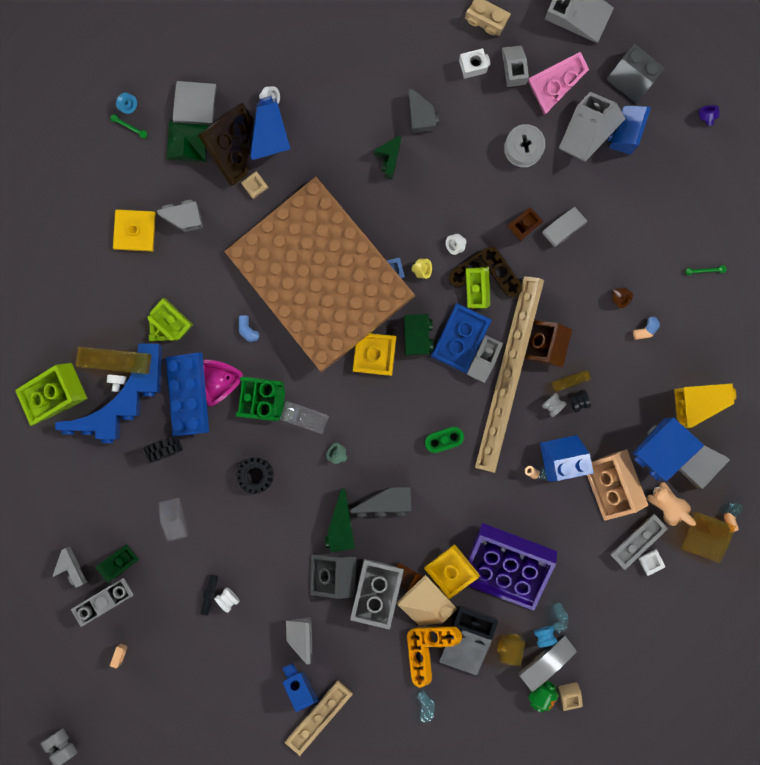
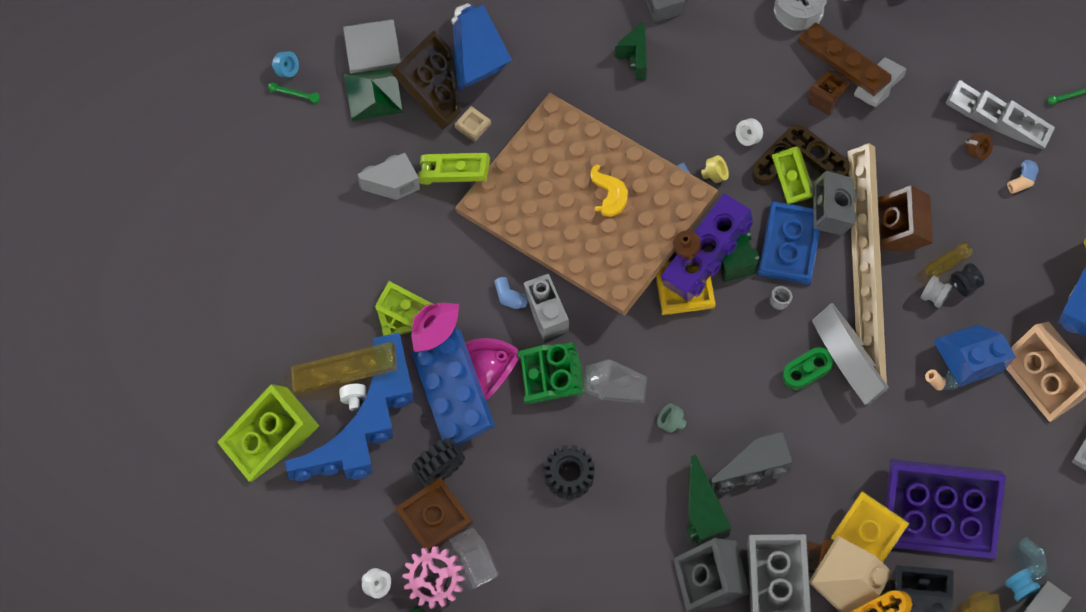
camera: 10 degrees left, 20 degrees down
(100, 523) = (376, 583): none -> white tile
(134, 230) = (331, 211): yellow plate -> none
(142, 528) = (437, 589): none -> bright pink gear
(152, 484) = (433, 515): none -> reddish brown plate
(182, 347) = (433, 325): none -> dark pink hat
(230, 221) = (453, 167): none -> lime plate
(269, 347) = (546, 307): none -> light grey slope
(340, 279) = (617, 192): none -> yellow piece
(383, 336) = (687, 244): none -> reddish brown tile
(399, 324) = (725, 212): none -> dark purple brick
(444, 380) = (780, 297): none -> light grey hinge
(475, 438) = (849, 354): none -> light grey slope
(485, 359) = (829, 258): light grey slope -> none
(492, 325) = (834, 203): none -> dark grey brick
(543, 202) = (844, 59): none -> reddish brown plate
(645, 275) = (1000, 116): none -> light grey slope

